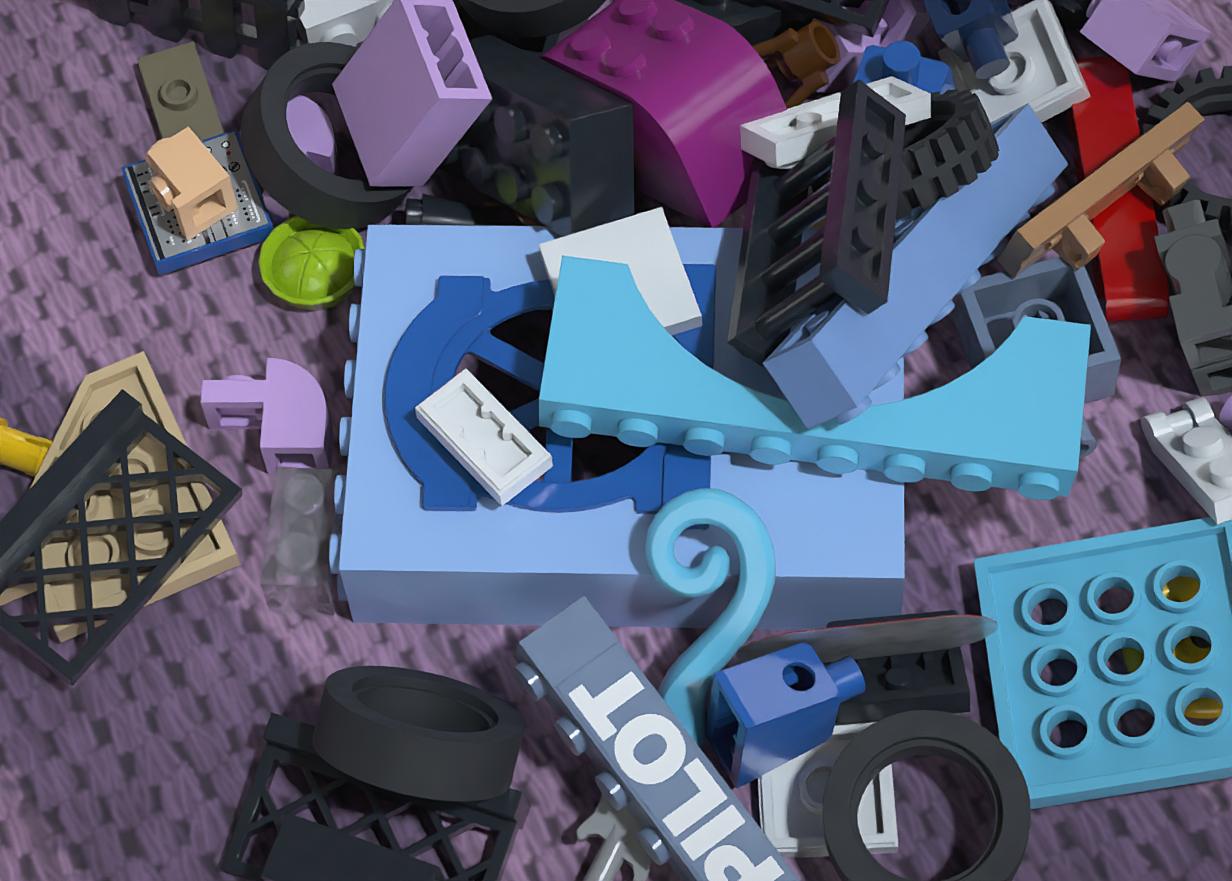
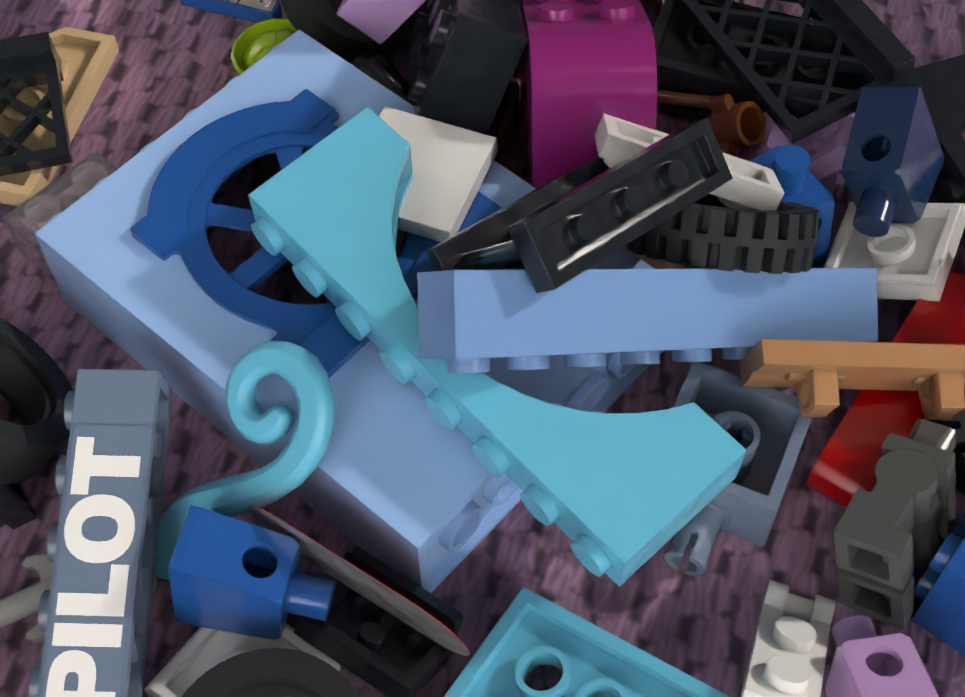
camera: 35 degrees right, 5 degrees down
(284, 406) = (142, 114): lavender brick -> none
(484, 437) = (208, 208): white plate -> none

